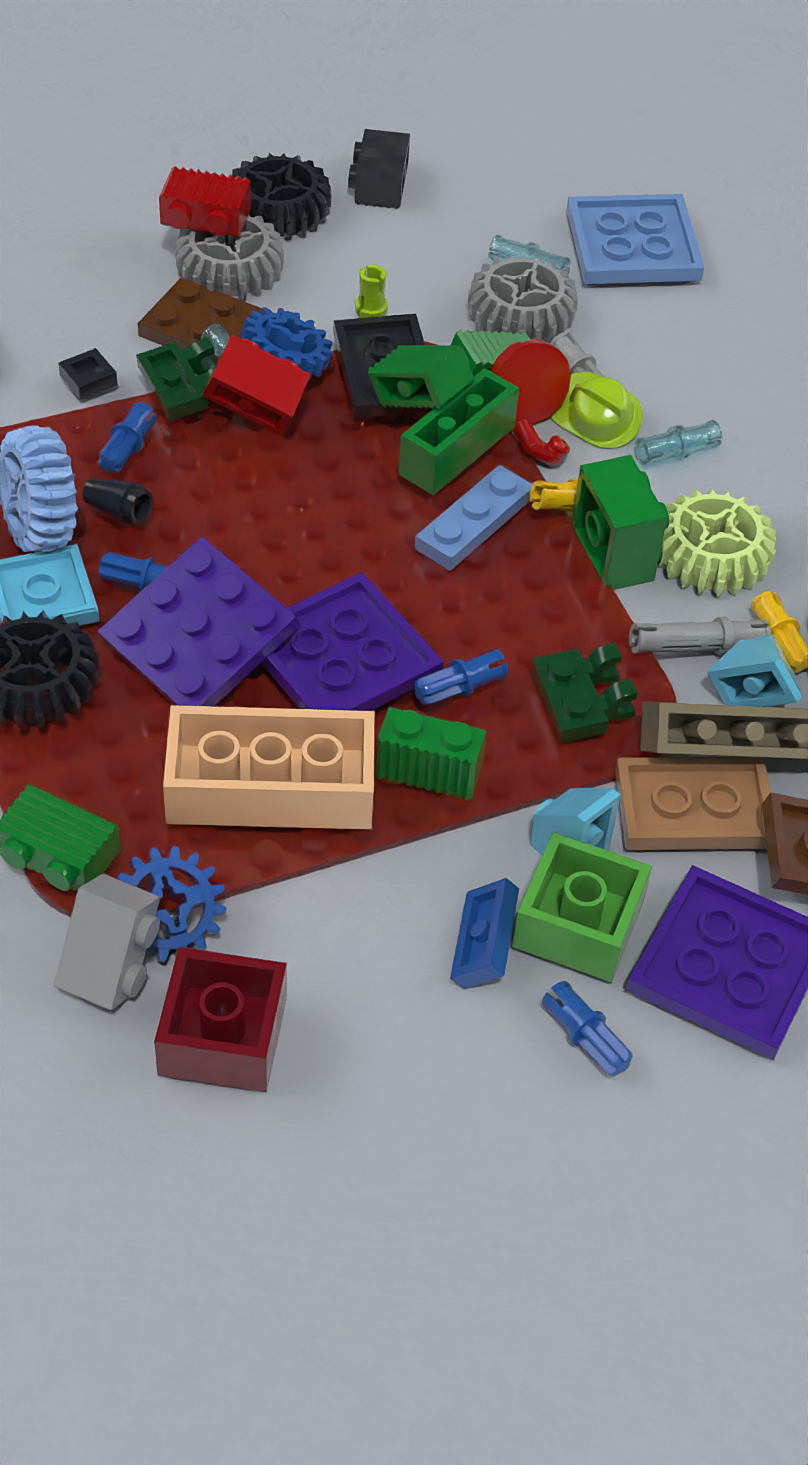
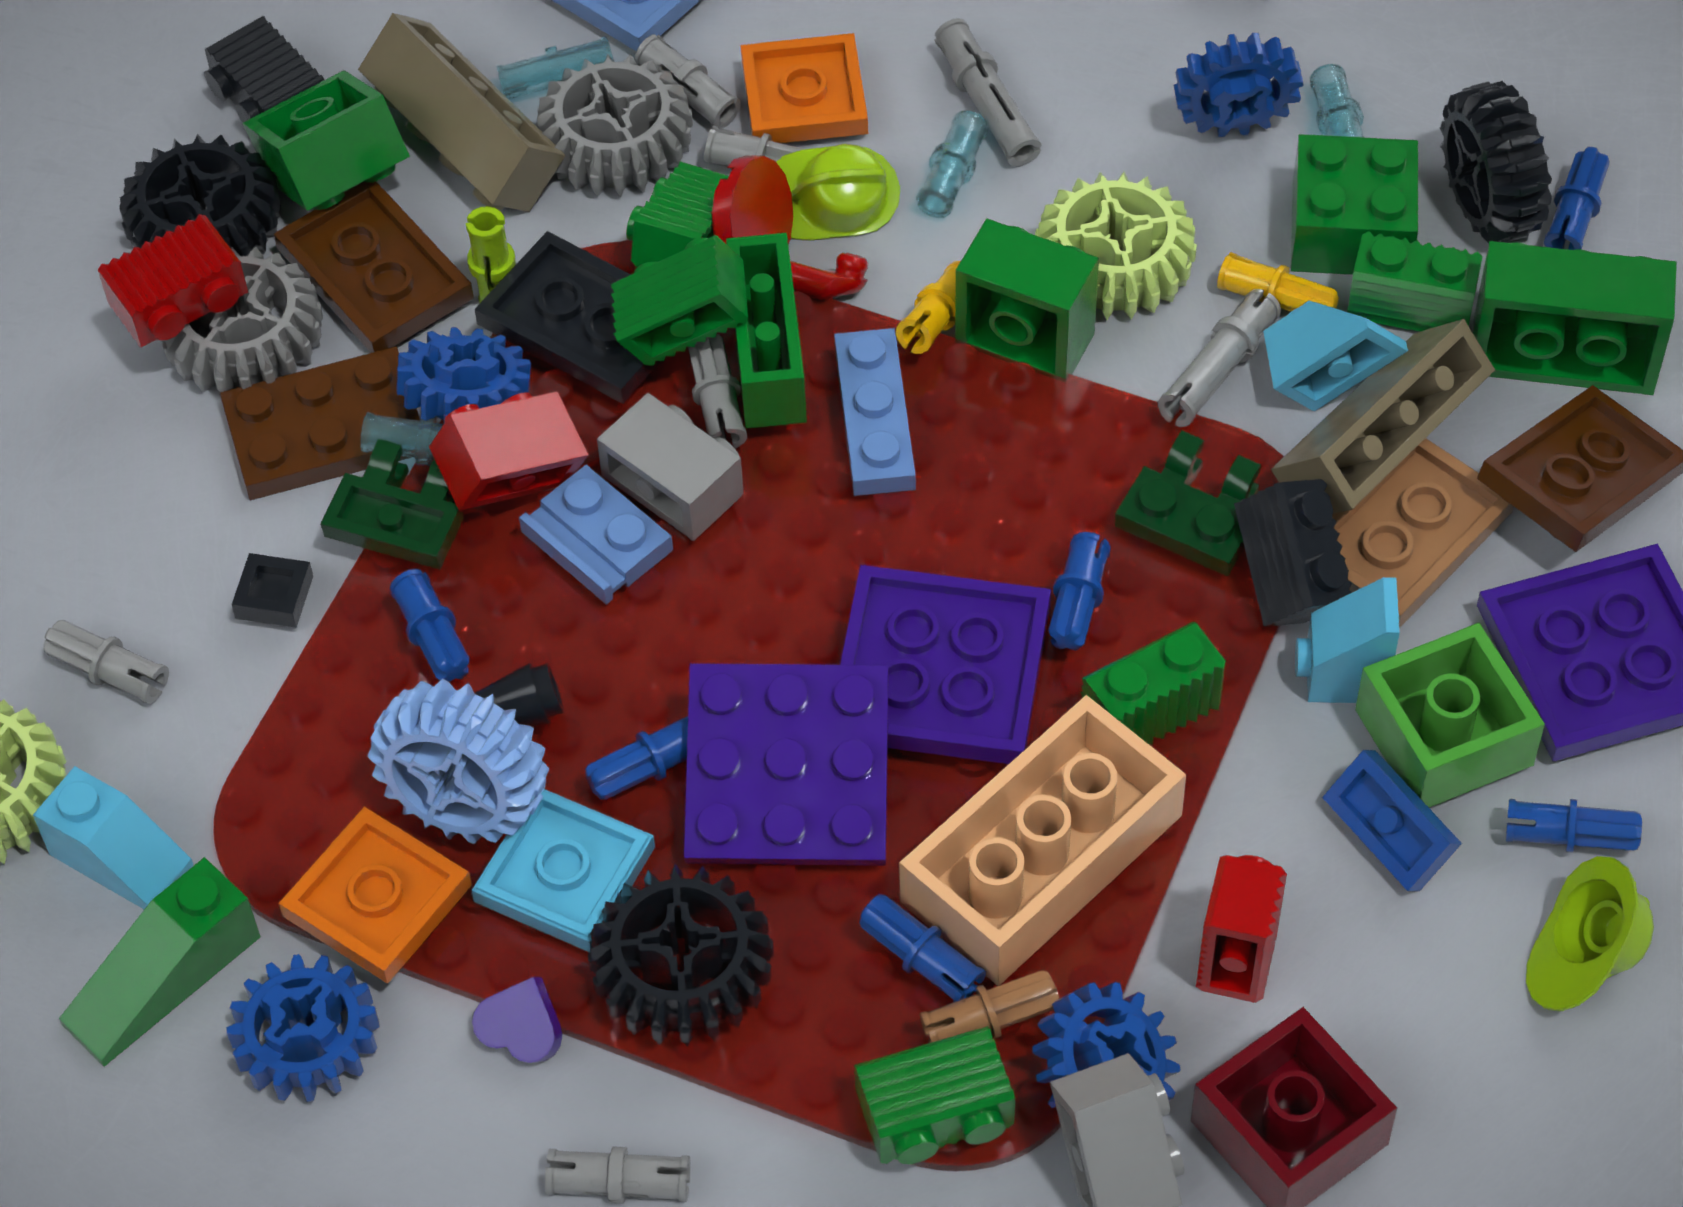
camera: 40 degrees left, 5 degrees up
(142, 827) = (993, 1008): none -> medium nougat axle
(148, 772) = (921, 948): none -> blue axle
(262, 463) = (596, 533): none -> medium blue plate
(318, 902) = (1241, 927): none -> red brick
(322, 275) = (374, 266): none -> reddish brown plate
(334, 458) = (671, 465): none -> light grey brick
(363, 203) = (328, 140): none -> green brick
(389, 457) = (717, 390): none -> light grey axle
(449, 240) = (461, 114): none -> dark tan brick
(519, 1094) = (1591, 934): none -> lime piece
(589, 310) = (701, 91): none -> light grey pin
(600, 745) = (1292, 550): none -> black brick
(645, 354) = (804, 88): none -> orange plate
(731, 454) = (977, 75): none -> light grey pin

